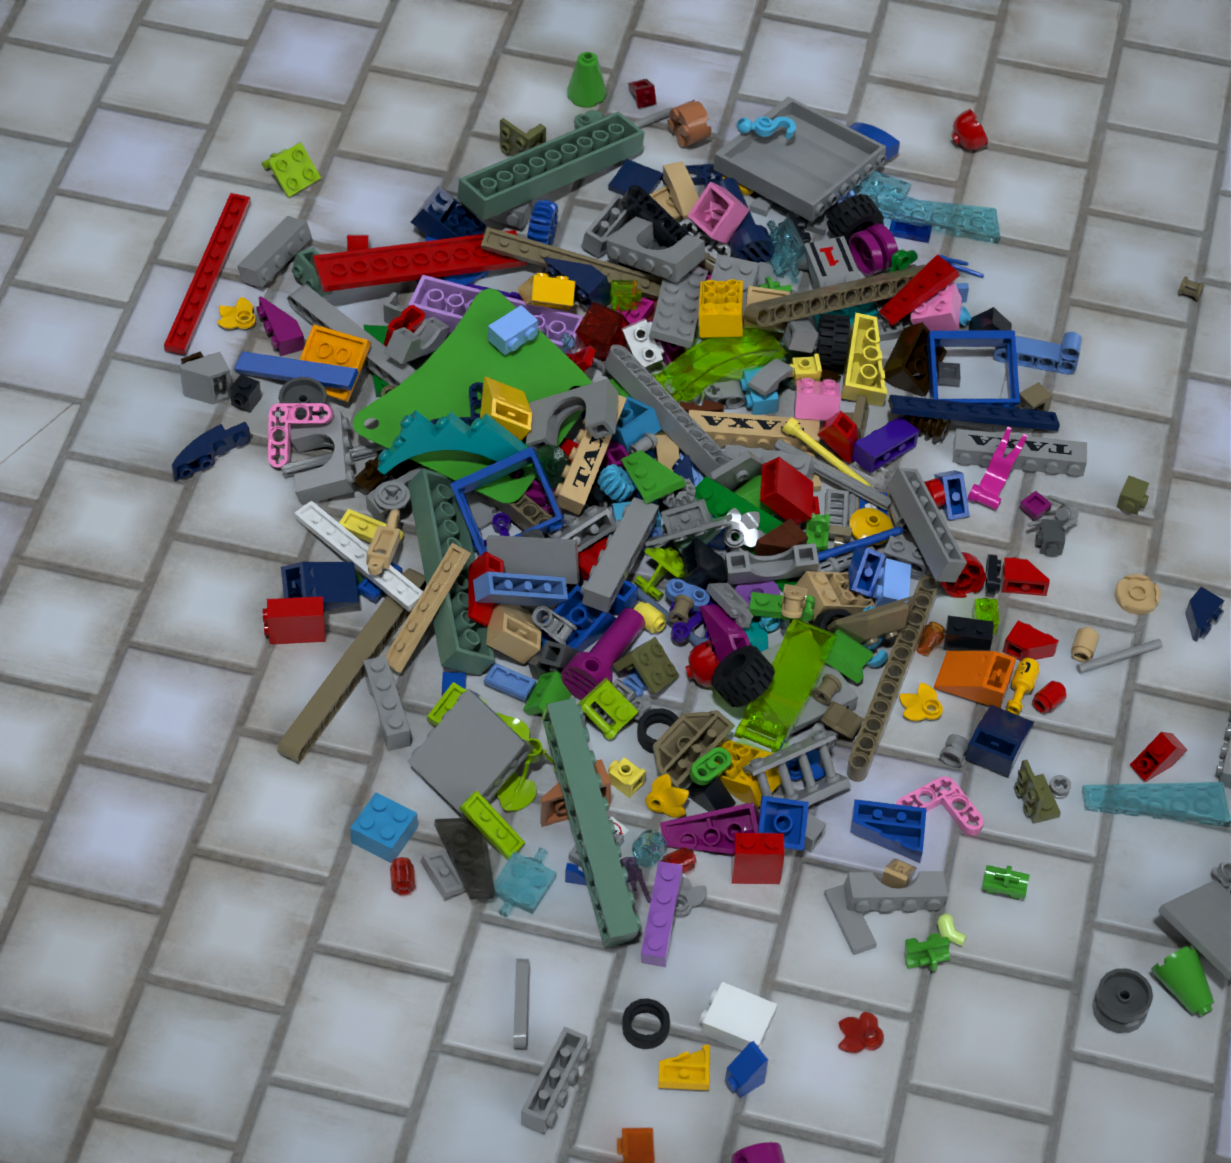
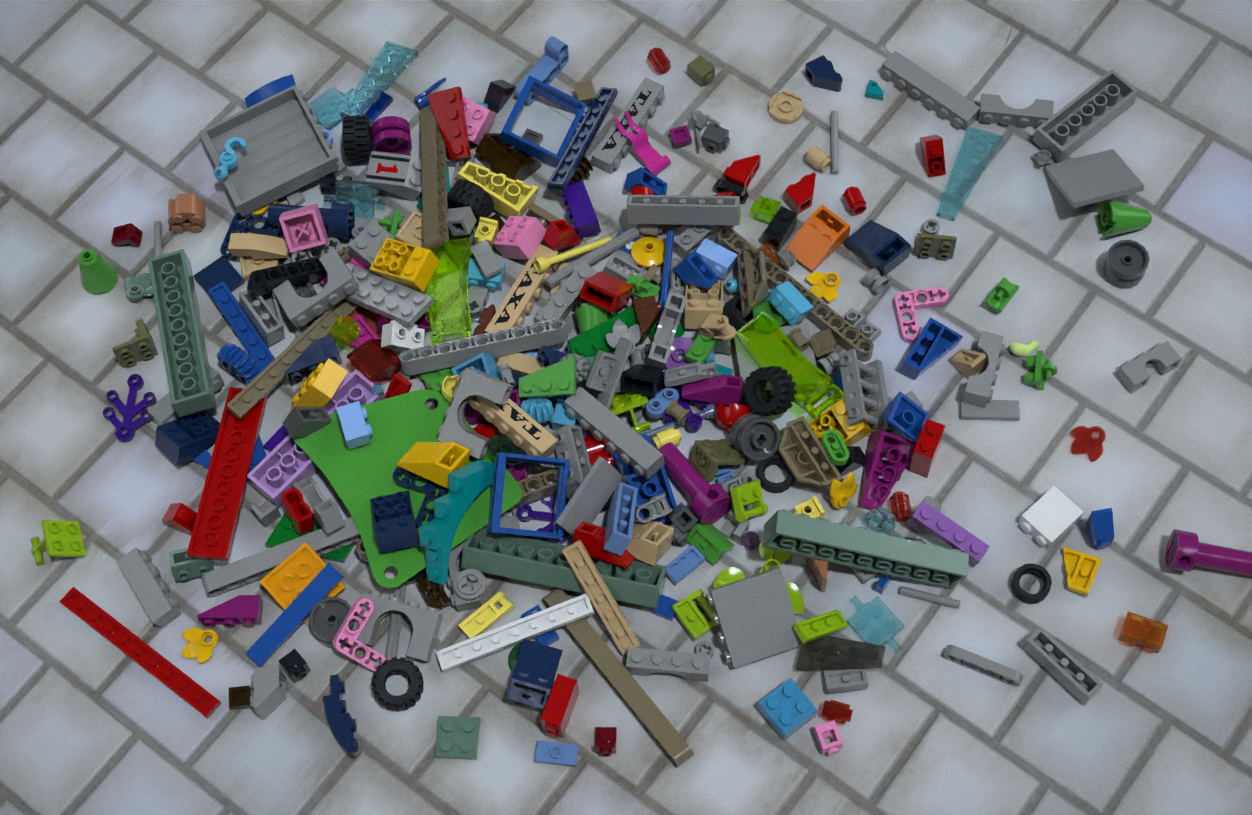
camera: 60 degrees left, 10 degrees up
(230, 554) = (457, 737): none -> sand green plate
(249, 643) = (556, 753): none -> medium blue plate
(258, 464) = (389, 668): none -> black tyre
(279, 680) = (605, 741): none -> dark red bracket
(368, 876) = (828, 731): none -> bright pink brick
(385, 540) = (518, 605): tan piece -> none
(418, 727) = (707, 645): none -> light grey bush
(428, 396) = (394, 522): none -> dark blue slope
(433, 174) = (129, 410): none -> dark purple plant
(499, 291) = (306, 420): none -> dark grey slope
(574, 235) = (241, 324): none -> blue tile
(582, 928) = (930, 597): none -> light grey bar
(686, 688) = (755, 436): none -> dark grey wheel
(738, 470) = (574, 315): light grey plate -> none
(870, 667) = (790, 303): none -> medium azure brick
(888, 756) = (859, 322): none -> light grey slope
(902, 259) = (415, 123): green plate -> none
(934, 655) = (787, 258): none -> light grey plate
(968, 131) = (303, 25): red cylinder -> none
(980, 1054) = (1161, 357): none -> light grey arch
(1023, 683) = (837, 209): yellow piece -> none
(1122, 452) = (659, 60): none -> clear red brick
(1214, 673) = (874, 91): none -> teal tile

